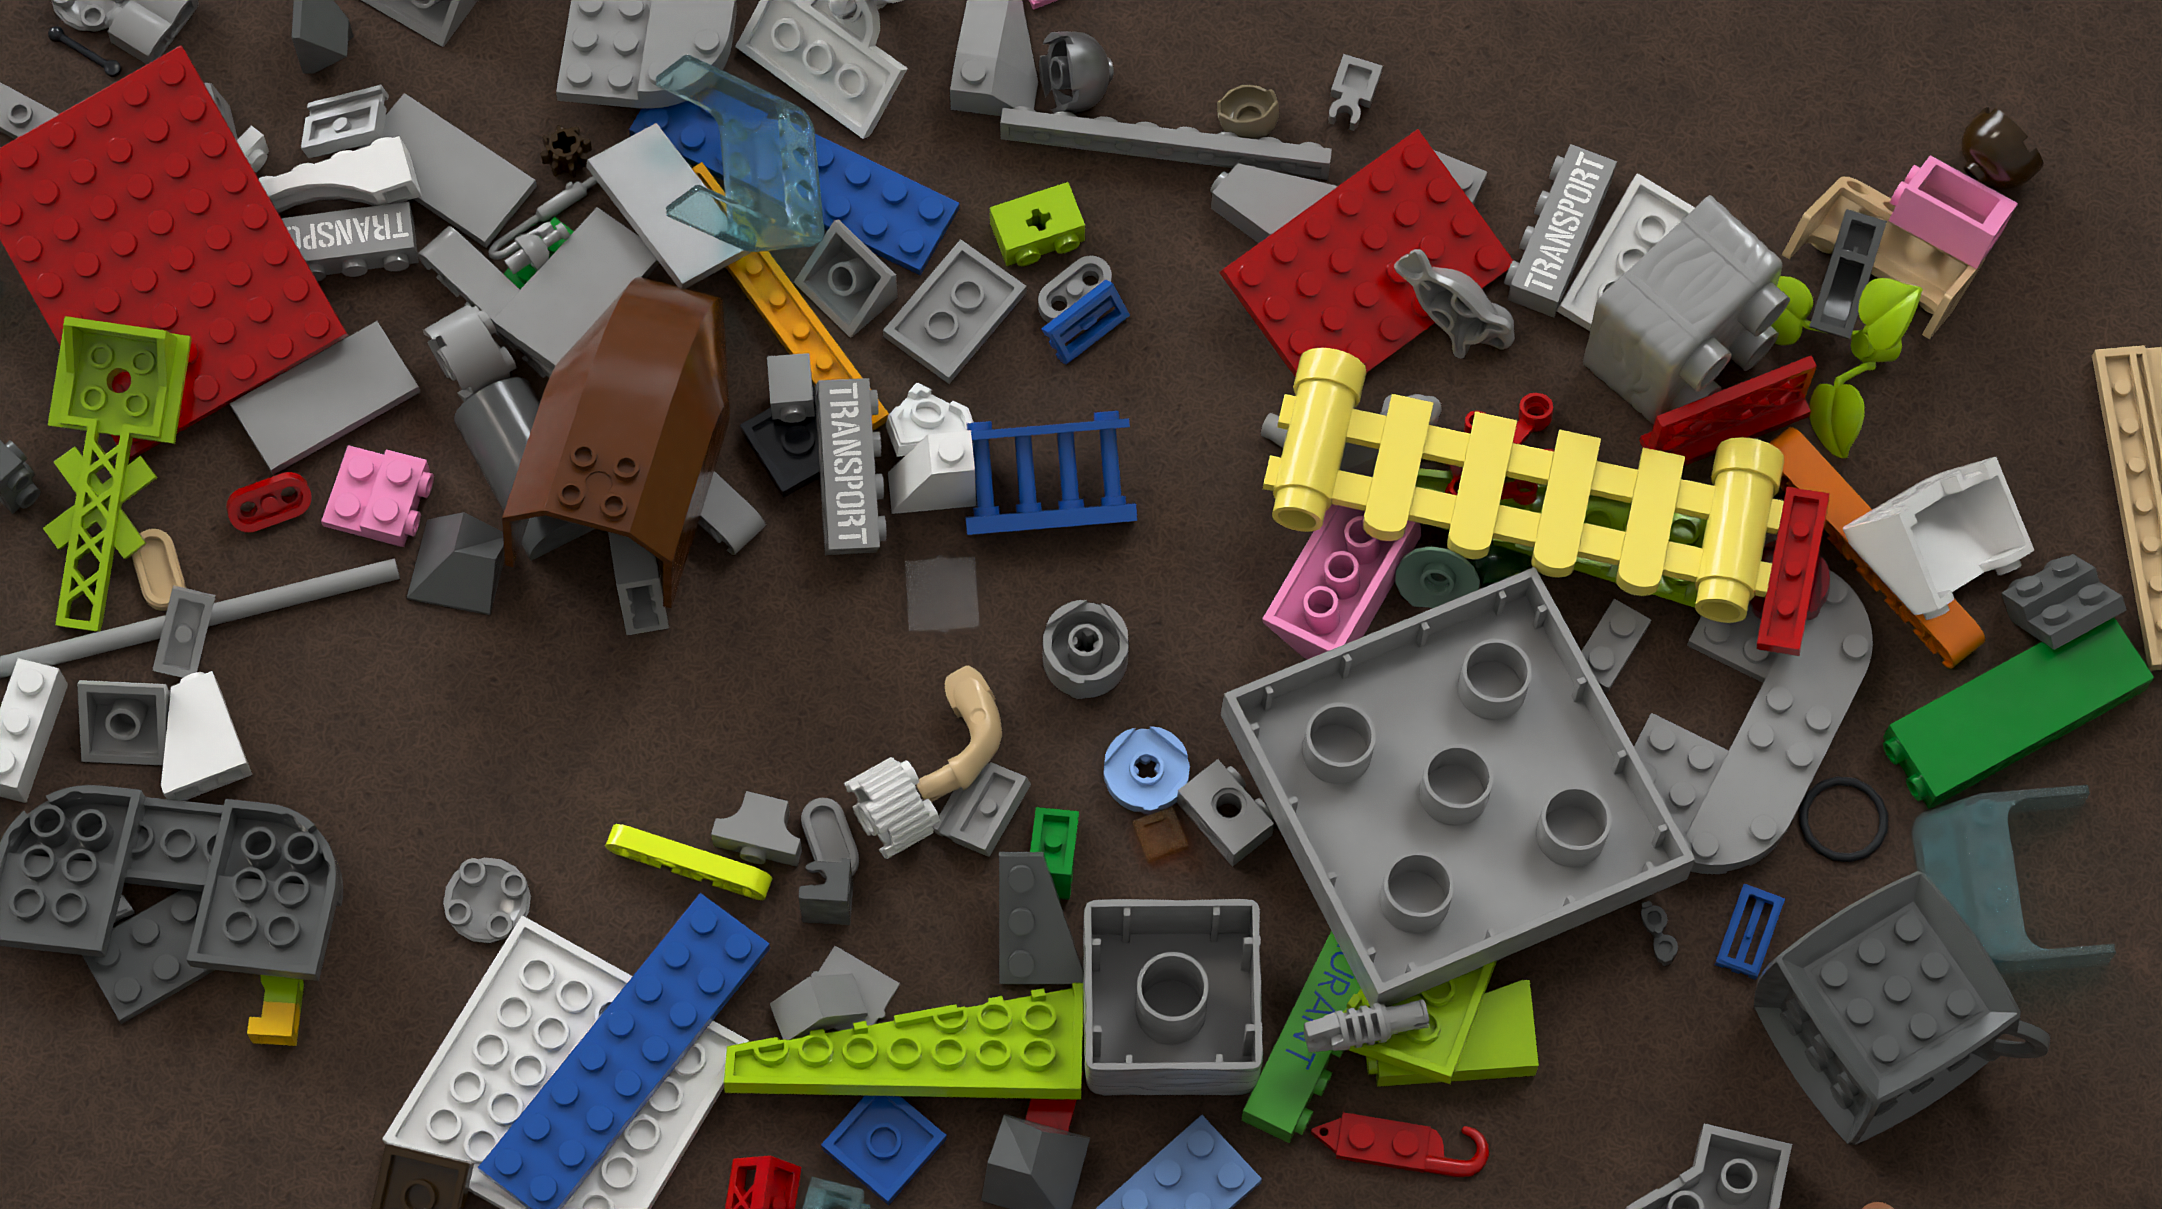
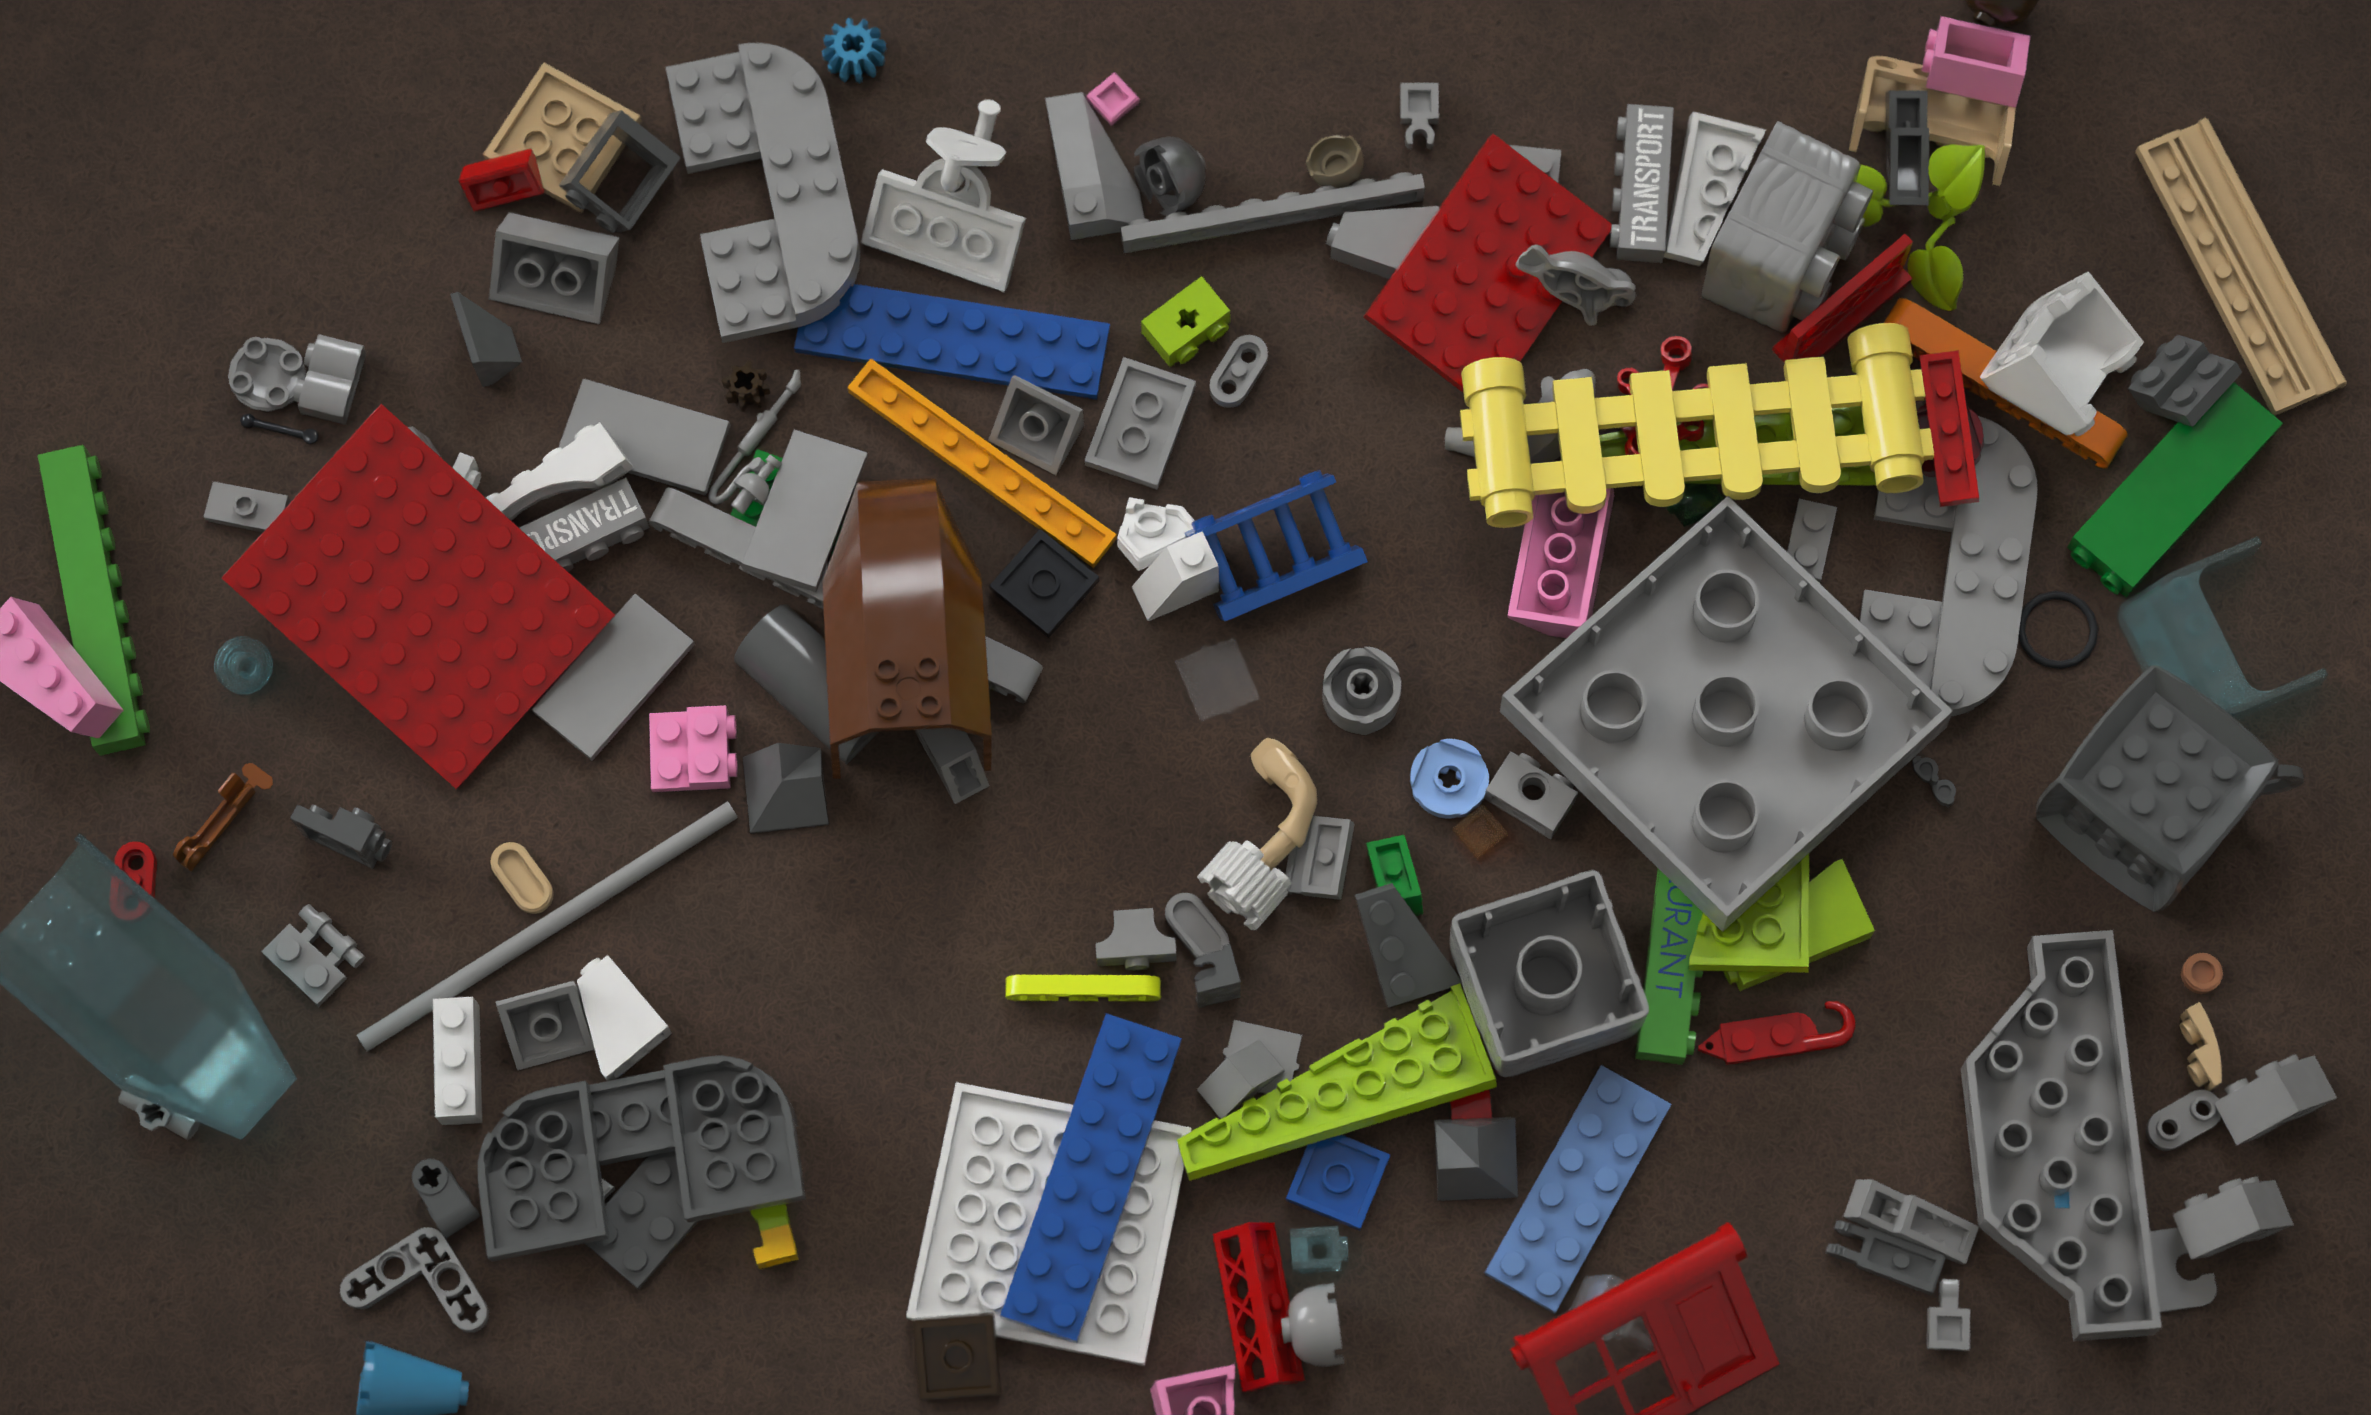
camera: 15 degrees left, 5 degrees up
(86, 401) = (410, 751): lime piece -> none
(183, 632) = (568, 928): light grey plate -> none
(269, 503) = (598, 788): red plate -> none
(344, 121) = (540, 421): light grey plate -> none
(467, 350) = (728, 596): light grey brick -> none
(486, 899) = (918, 1077): light grey dish -> none
(642, 180) = (859, 409): light grey tile -> none
(766, 162) = (932, 344): clear light blue windscreen -> none
(790, 387) = (1025, 539): light grey brick -> none
(848, 466) = (1099, 593): light grey brick -> none
(1082, 316) = (1255, 392): blue tile -> none
(1364, 1025) = (1720, 946): light grey hinge -> none
(1435, 577) = (1643, 531): sand green dish -> none
(1738, 965) = (2010, 786): blue tile -> none

